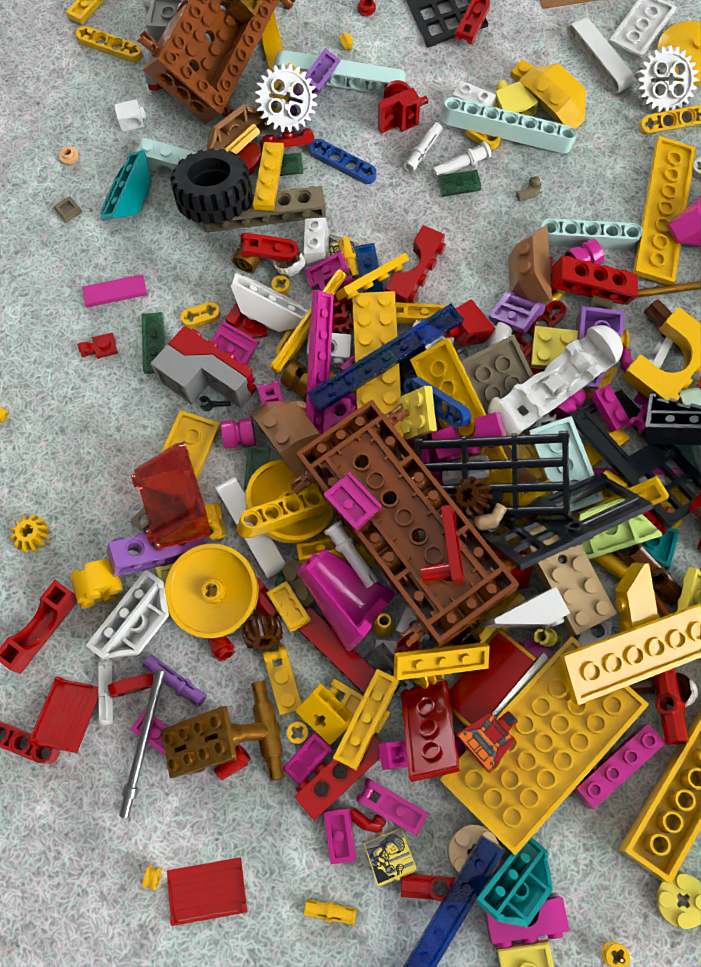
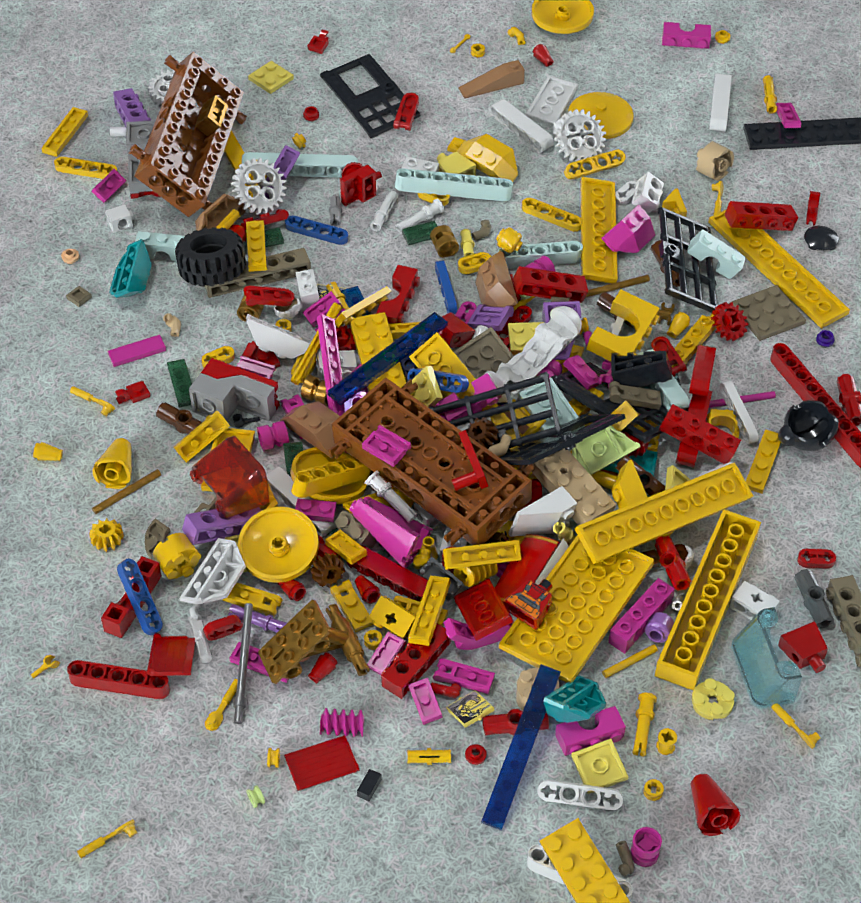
camera: 15 degrees left, 20 degrees down
(47, 631) = (136, 597): none -> blue beam
(57, 441) = (115, 465): none -> yellow cone
(65, 476) = (126, 491): none -> pearl gold bar
(67, 362) = (107, 407): none -> yellow piece
(84, 546) = (155, 533): none -> dark tan tile
(101, 803) = (215, 718): none -> yellow piece
(120, 928) = (255, 796): none -> yellowish green bush
(126, 71) = (108, 185): none -> dark pink plate
(136, 388) = (178, 418): none -> reddish brown piece
(158, 421) = (201, 436): none -> yellow piece
(162, 262) = (174, 323): none -> tan arm
(175, 652) = (245, 594): none -> yellow plate
(238, 847) = (342, 722): none -> dark pink piece
(253, 939) = (369, 785): none -> black piece
(264, 550) = (317, 510): none -> dark pink plate
(303, 662) = (368, 591): none -> red cone
(368, 138) = (335, 210): none -> light grey axle
(374, 637) = (420, 560): none -> yellow arm
(378, 914) = (475, 759): none -> red plate
(473, 262) = (446, 287): none -> blue beam
(483, 199) = (444, 241): none -> pearl gold wheel
(484, 299) = (461, 313): none -> dark pink beam
(508, 206) = (467, 243): none -> light yellow pin
(511, 232) = (472, 262): none -> yellow plate
(558, 213) = (509, 240): none -> yellow head
(591, 822) = (629, 661): none -> yellow bar
(596, 908) = (644, 715): none -> yellow pin
(616, 177) = (530, 205): none -> yellow beam
(638, 787) = (659, 627): none -> medium lavender head
(663, 755) = (677, 600): none -> white arm
(667, 455) = (634, 396): none -> dark tan plate

